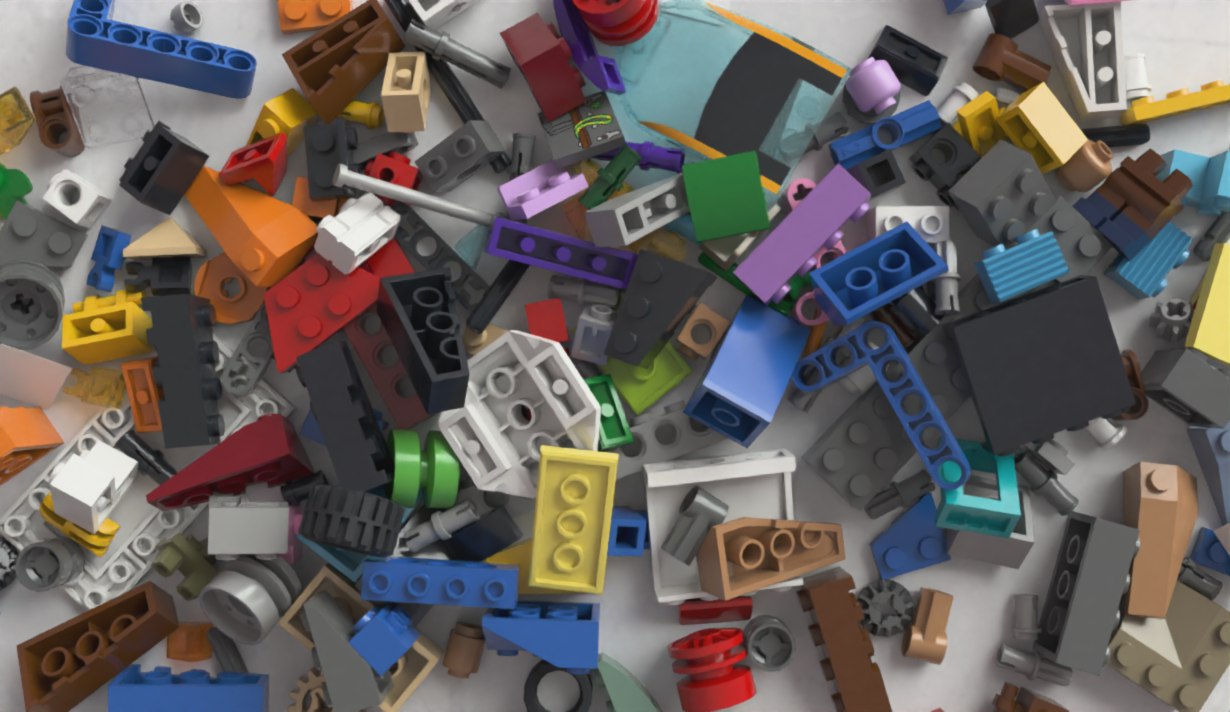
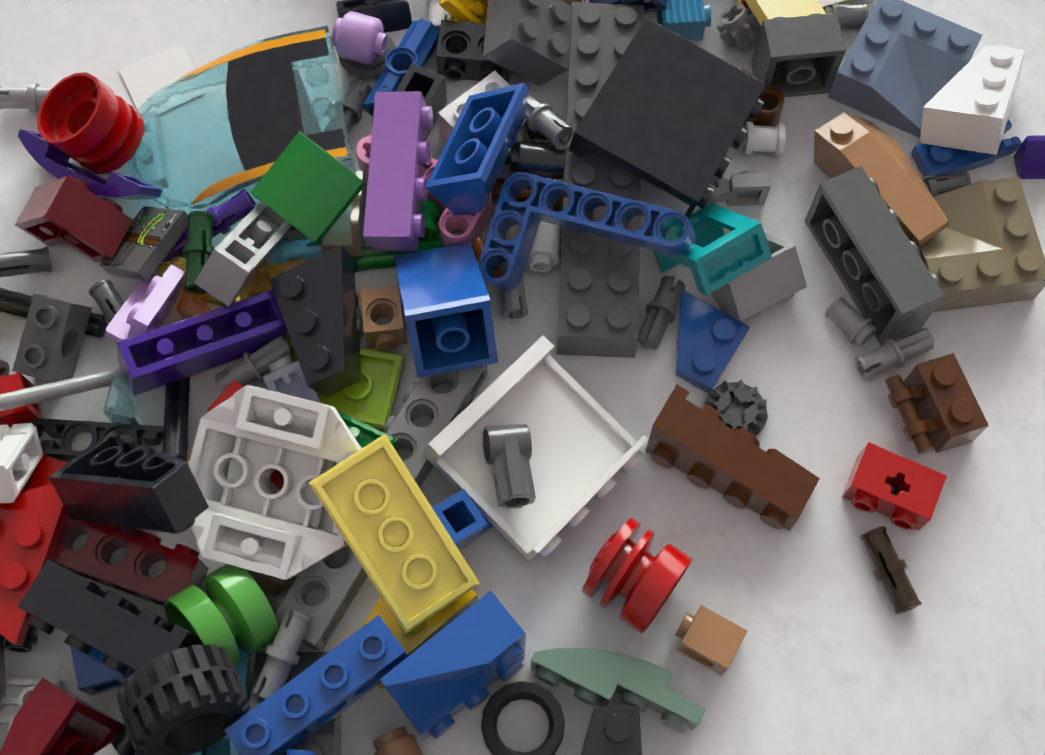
camera: 40 degrees left, 20 degrees down
(484, 537) = (330, 622): black slope -> none
(703, 612) = (589, 536): red slope -> none
(763, 552) = (581, 438): medium nougat wedge -> none
(769, 643) = (668, 512): dark grey wheel -> none
(926, 635) = (787, 400): medium nougat piece -> none
(1021, 267) = (586, 60): dark azure brick -> none
(1045, 483) = (768, 212): dark grey pin -> none

